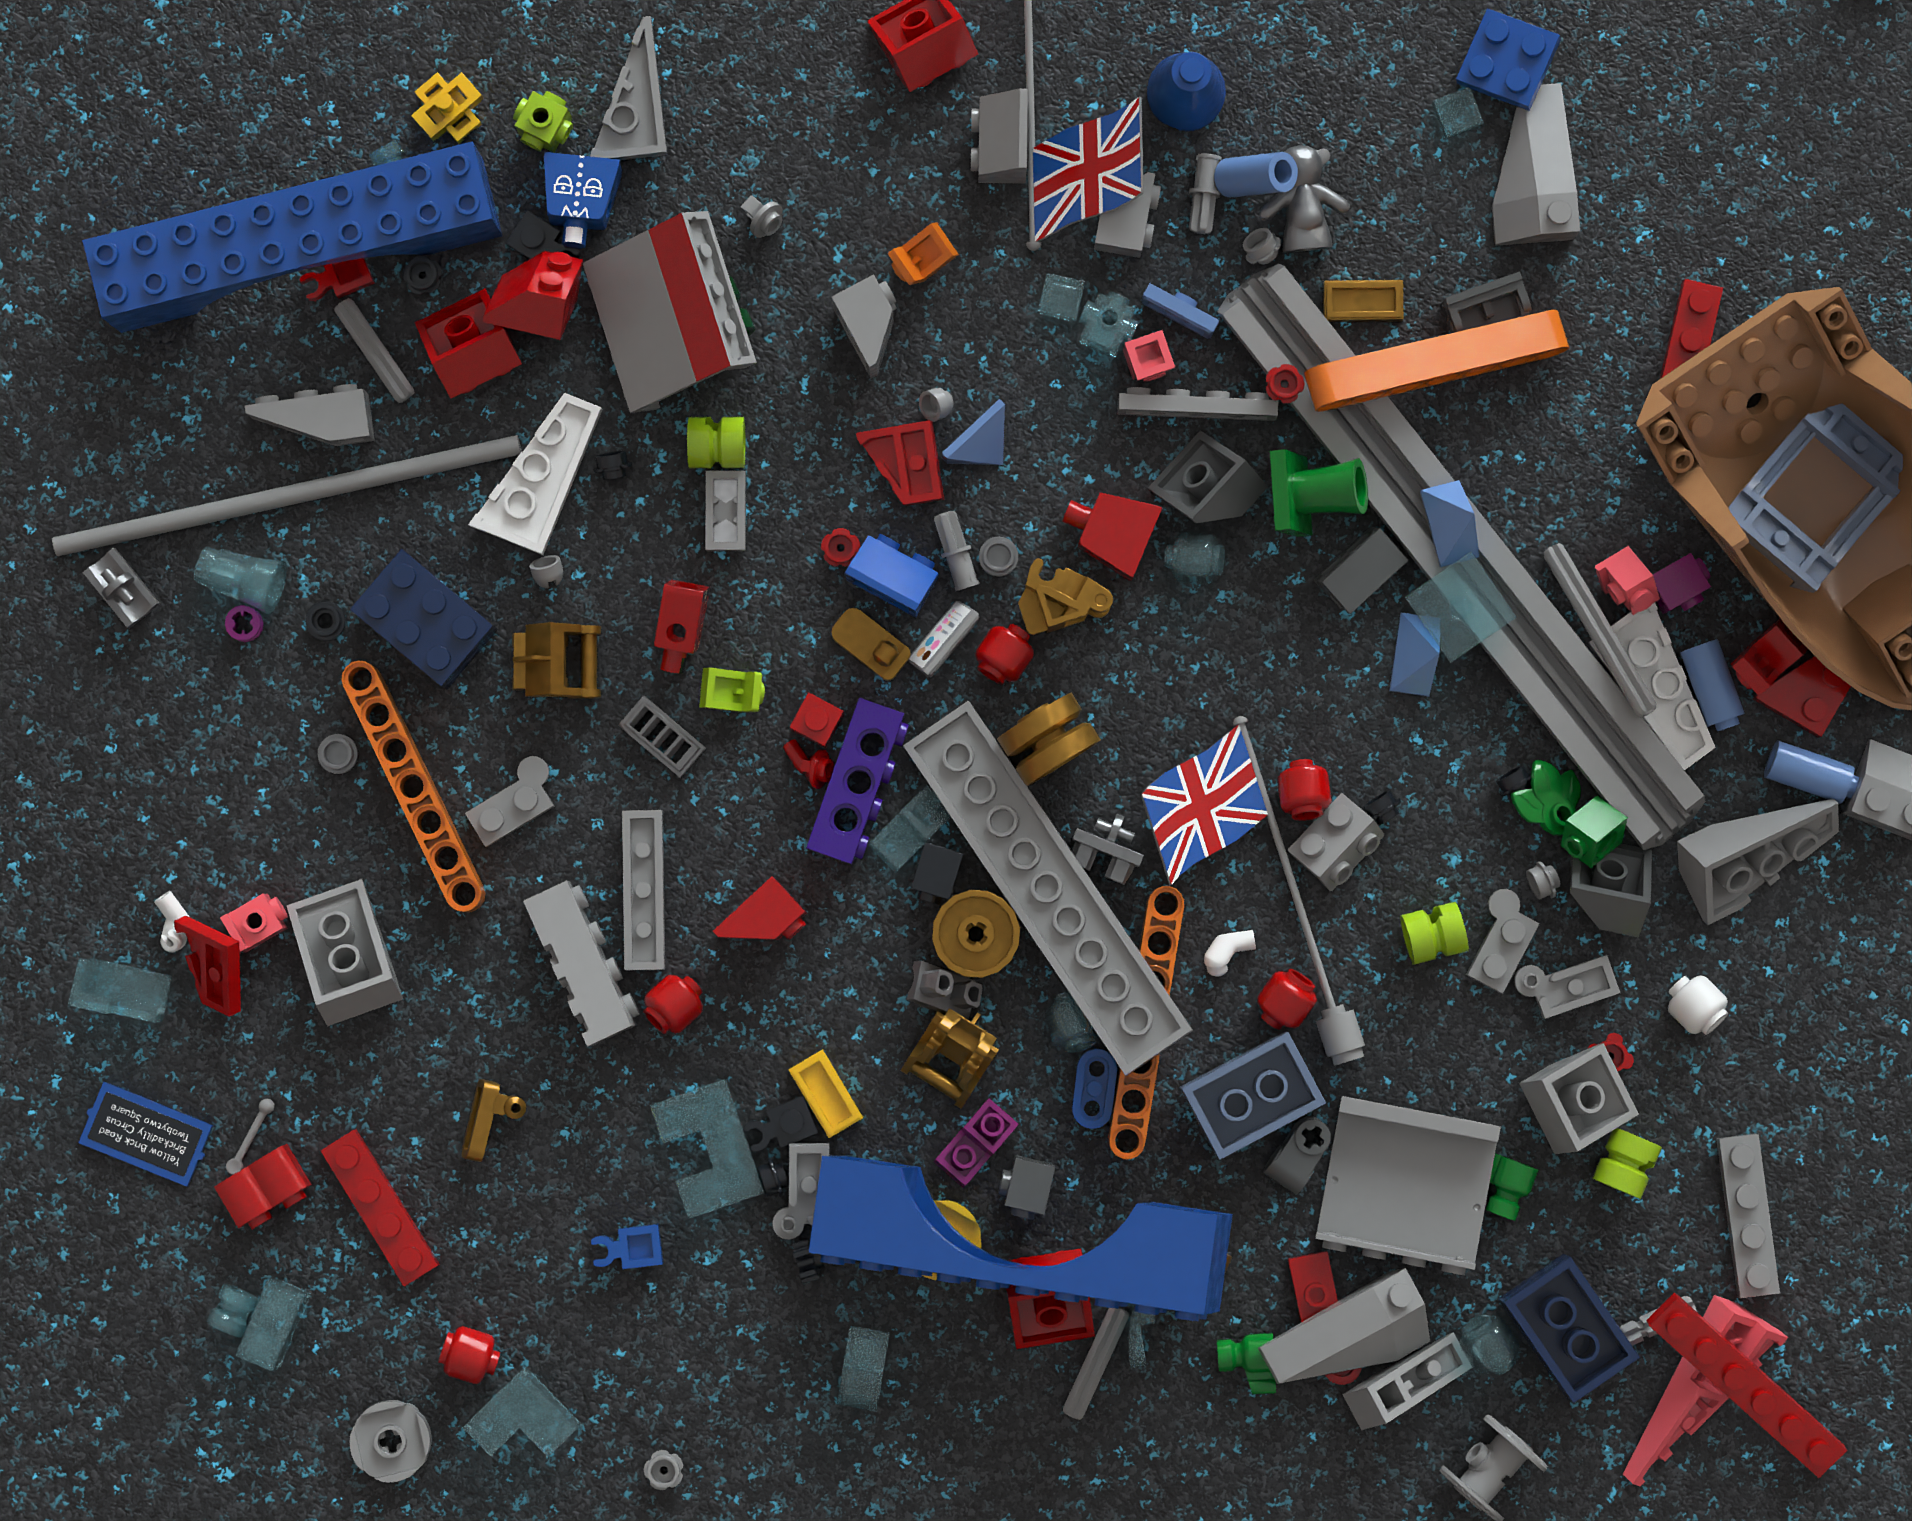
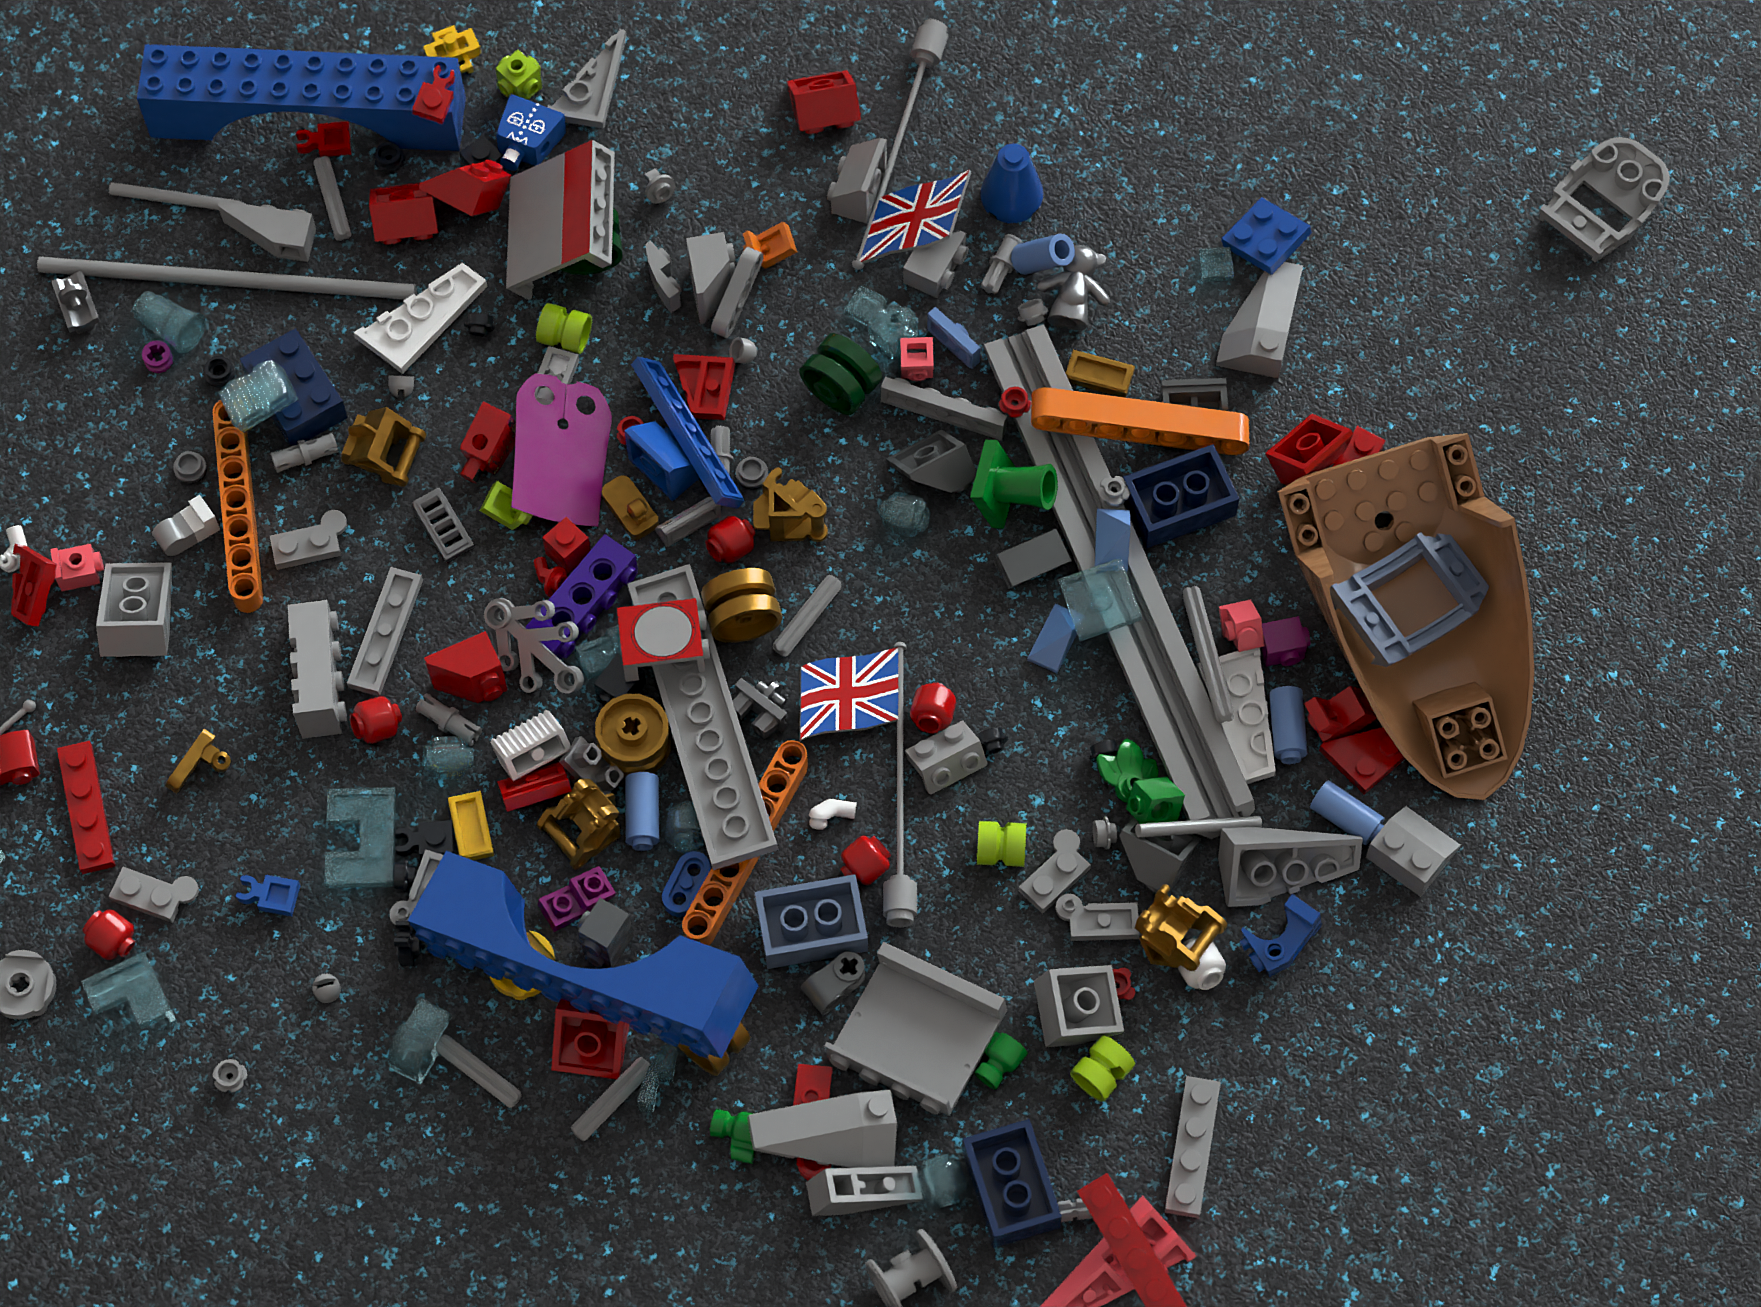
camera: 20 degrees right, 20 degrees down
(178, 407) = (165, 196): none -> light grey bar
(363, 834) = (186, 527): none -> leg
(394, 657) = (257, 395): none -> clear light blue brick
(466, 694) = (304, 452): none -> light grey pin
(467, 212) = (435, 99): none -> red plate
(497, 1287) = (153, 895): none -> light grey hinge
(726, 1327) = (329, 992): none -> light grey hinge
(755, 974) = (448, 719): none -> light grey pin
(772, 1024) = (447, 757): none -> clear light blue head
(773, 620) = (558, 468): none -> magenta piece
(801, 326) = (661, 277): none -> light grey slope
(822, 860) = (530, 643): none -> light grey plant
(862, 981) = (531, 745): none -> white brick
(884, 1029) = (534, 787): none -> red plate
(907, 333) = (737, 292): none -> light grey beam
(911, 537) = (688, 432): none -> blue tile
(938, 1378) = (478, 1071): none -> light grey axle
(975, 814) = (661, 635): none -> panel
(981, 441) = (766, 385): medium blue slope -> none
(1015, 1019) = (642, 810): none -> medium blue brick
(1067, 407) = (840, 374): none -> dark green wheel
(1114, 530) = (849, 477): red torso -> none
(1121, 717) = (807, 615): none -> light grey axle
(1427, 470) = (1108, 497): none -> light grey plate
(1509, 439) = (1180, 496): none -> dark blue brick
(1644, 337) = (1308, 448): none -> red slope
(1651, 847) = (1195, 826): none -> light grey bar
(1651, 978) = (1167, 924): none -> pearl gold piece
(1800, 931) = (1302, 924): none -> blue tile

